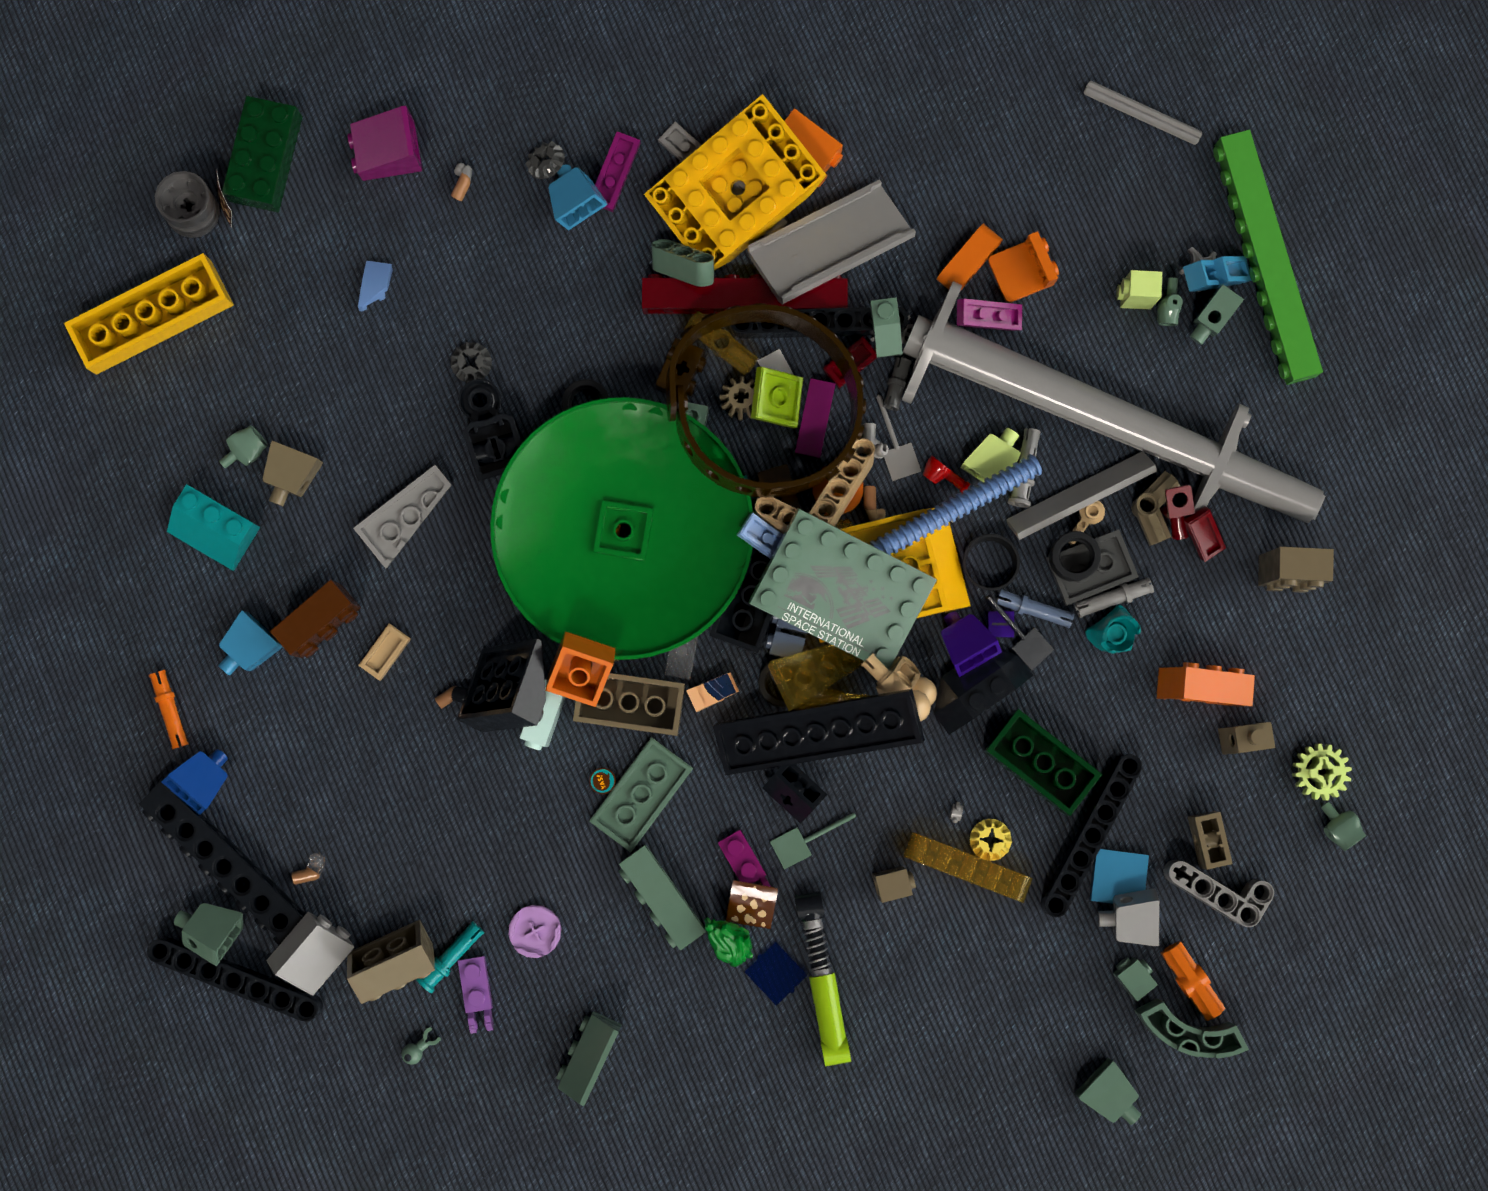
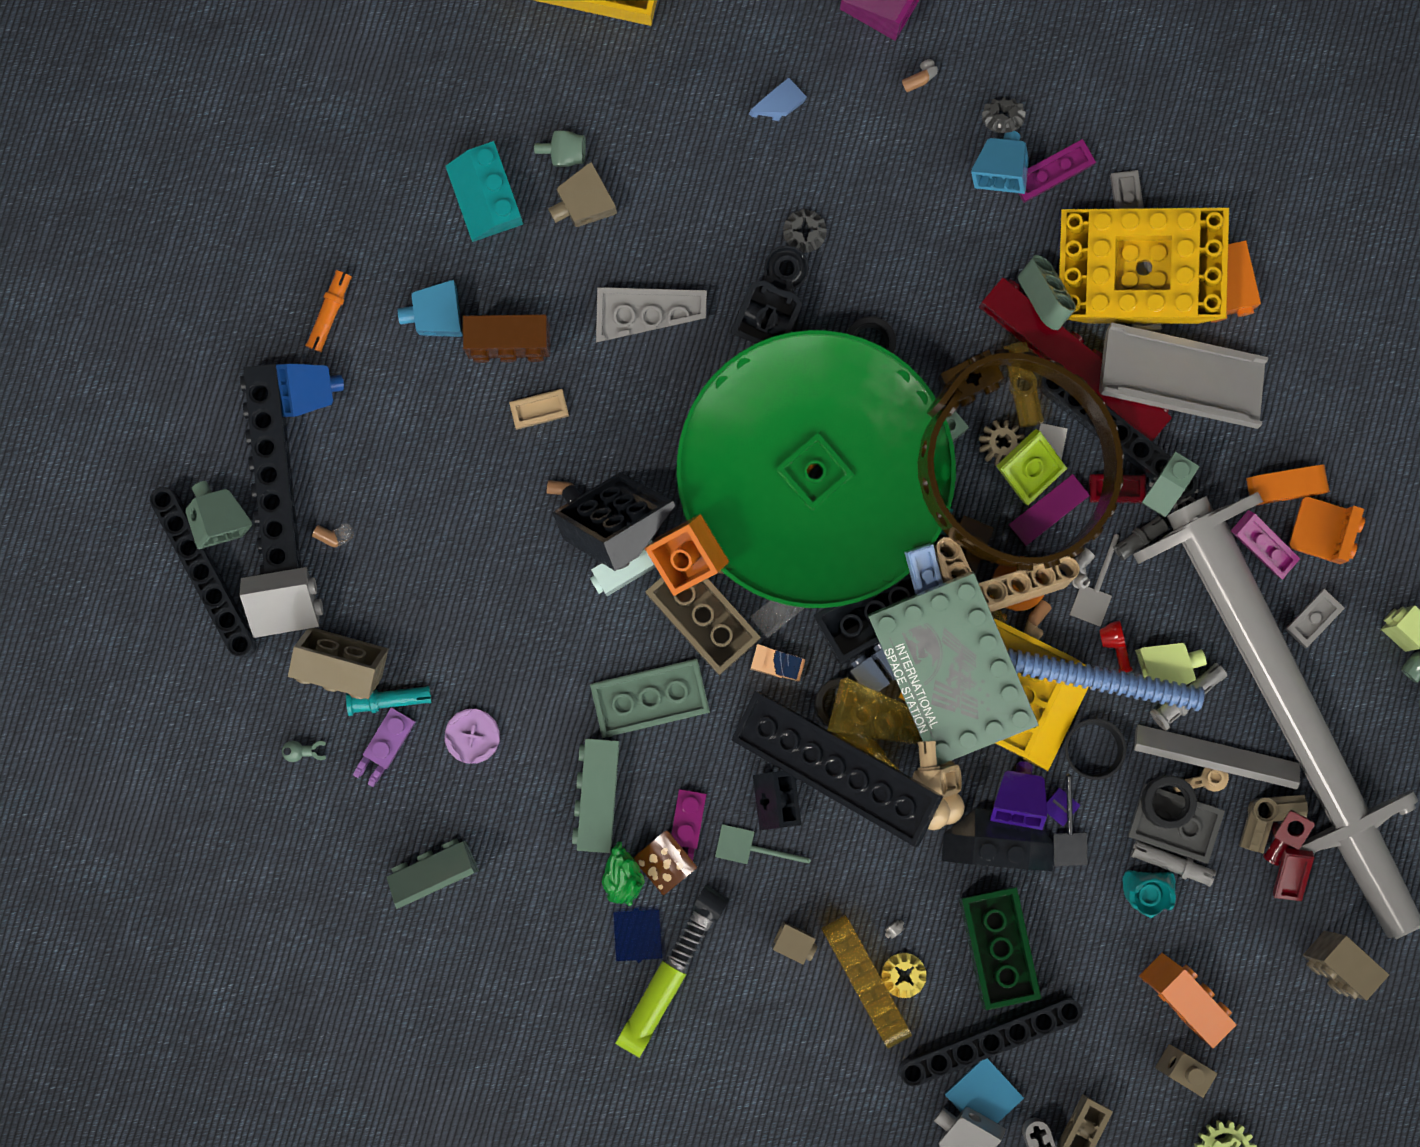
camera: 40 degrees right, 0 degrees up
(602, 781) = (627, 660): reddish brown tile -> none
(1023, 604) = (1099, 817): sand blue pin -> none
(1067, 338) = (1314, 618): none -> light grey plate

